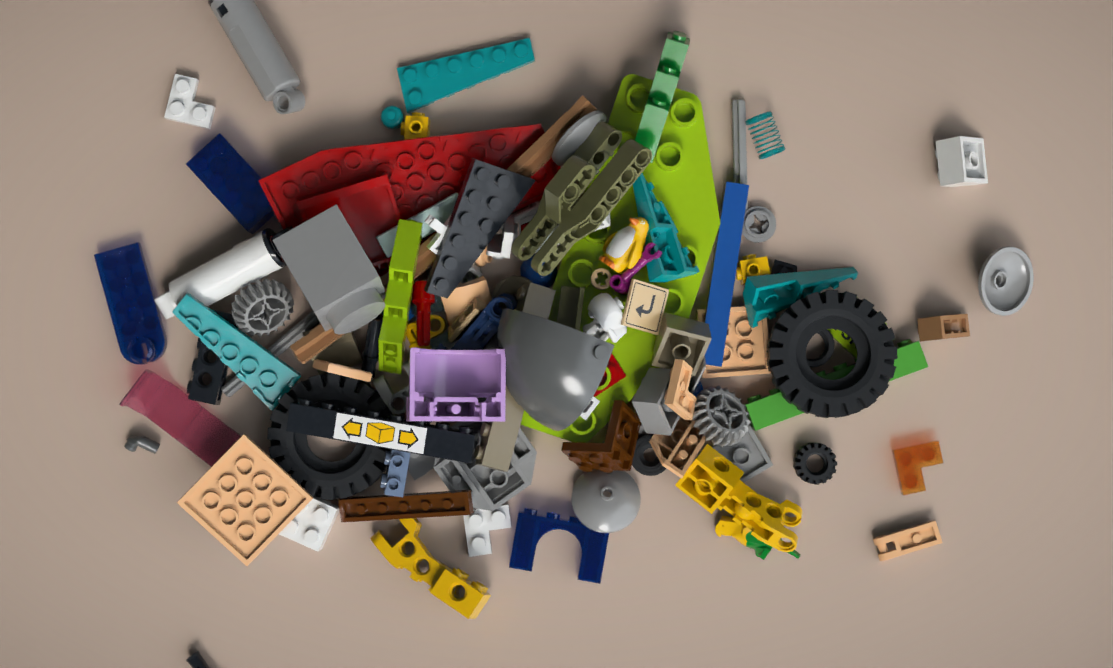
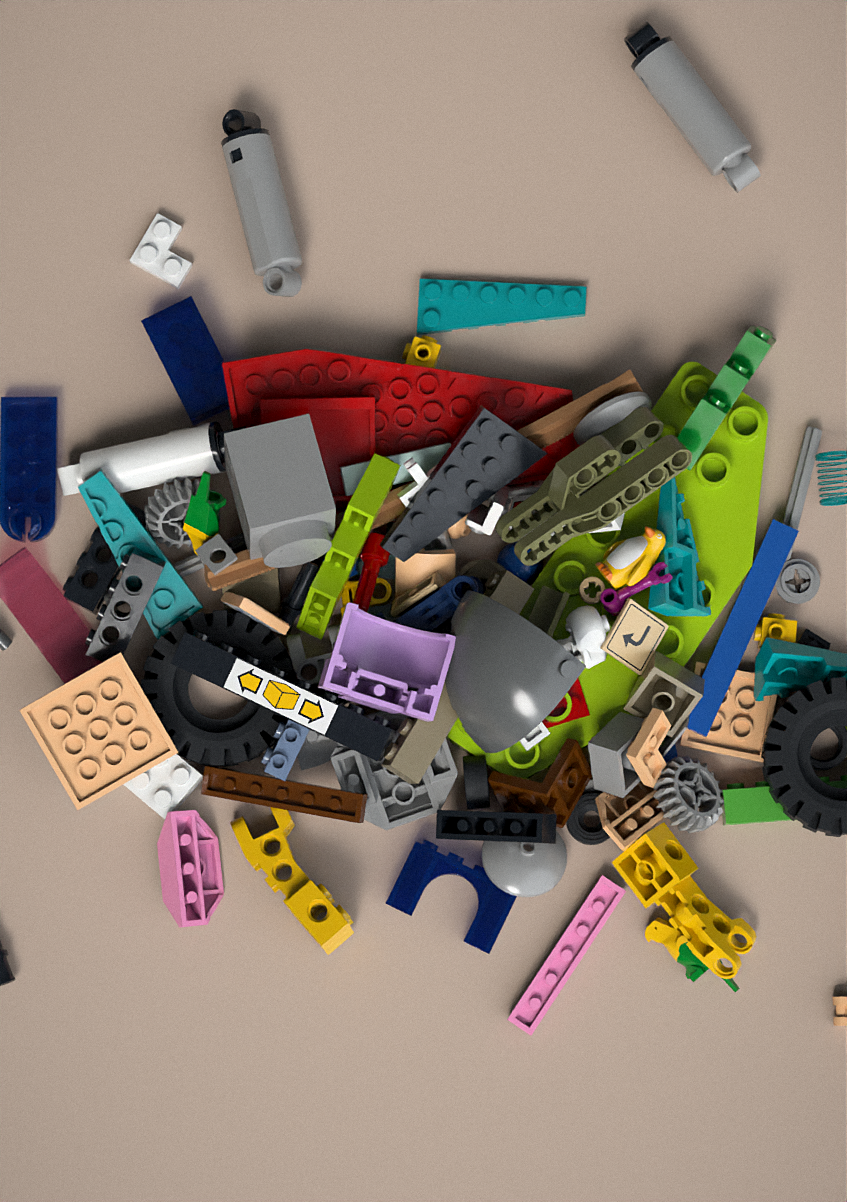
camera: 20 degrees right, 5 degrees down
(248, 361) = (148, 569): none -> brick
(278, 307) = (202, 513): none -> green animal
(295, 332) = (215, 550): none -> light grey bracket
(349, 583) = (189, 868): none -> bright pink wedge
(392, 117) = (397, 334): teal piece -> none
(478, 527) = (363, 843): white plate -> none
(552, 453) = (476, 782): none -> black tyre
(578, 485) = (496, 826): none -> black brick
(659, 566) = (566, 955): none -> bright pink plate
(747, 455) = (709, 851): light grey plate -> none
(828, 459) = (805, 885): black tyre -> none

